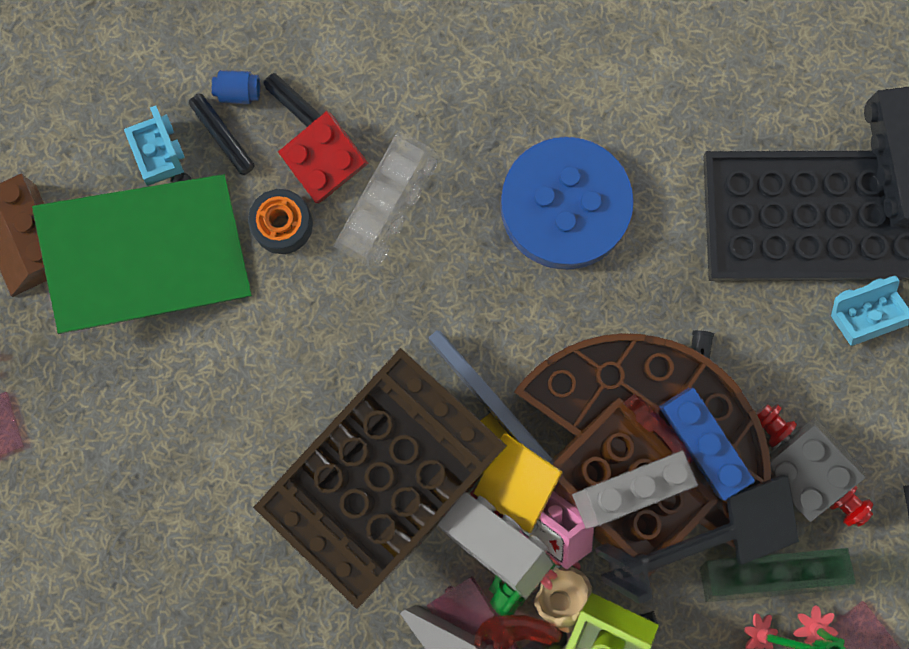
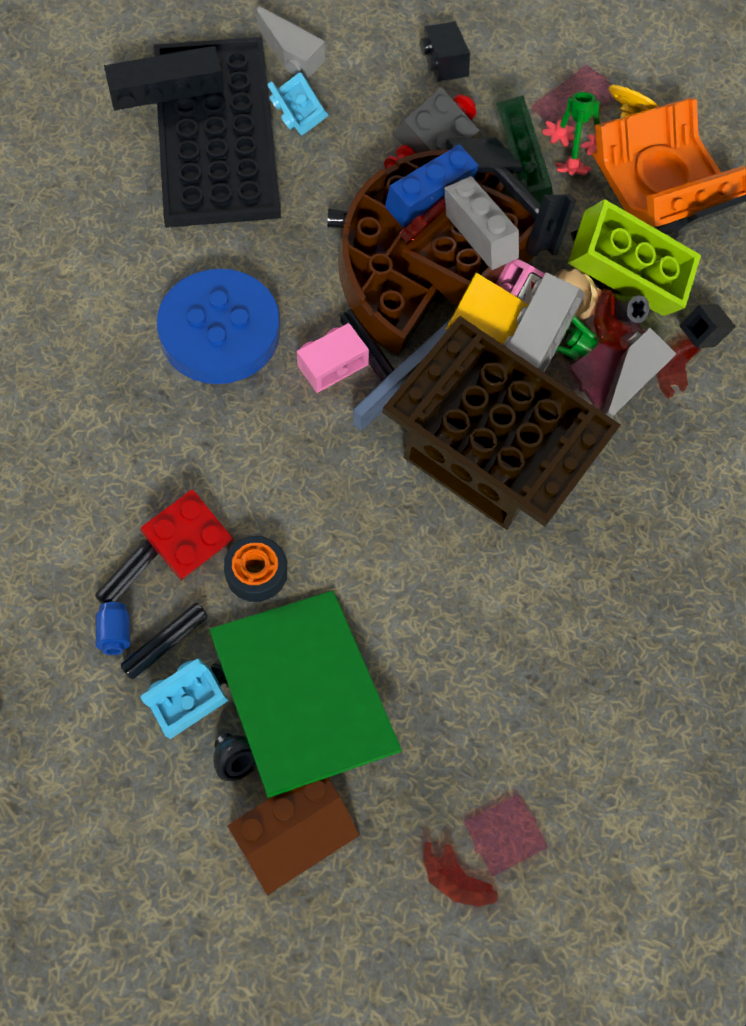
camera: 100 degrees left, 15 degrees down
(95, 182) = (232, 757): none -> black brick
(387, 199) = (226, 465): clear wedge -> none
(513, 317) = (332, 357): none -> bright pink brick
(525, 360) = (377, 359): none -> black axle

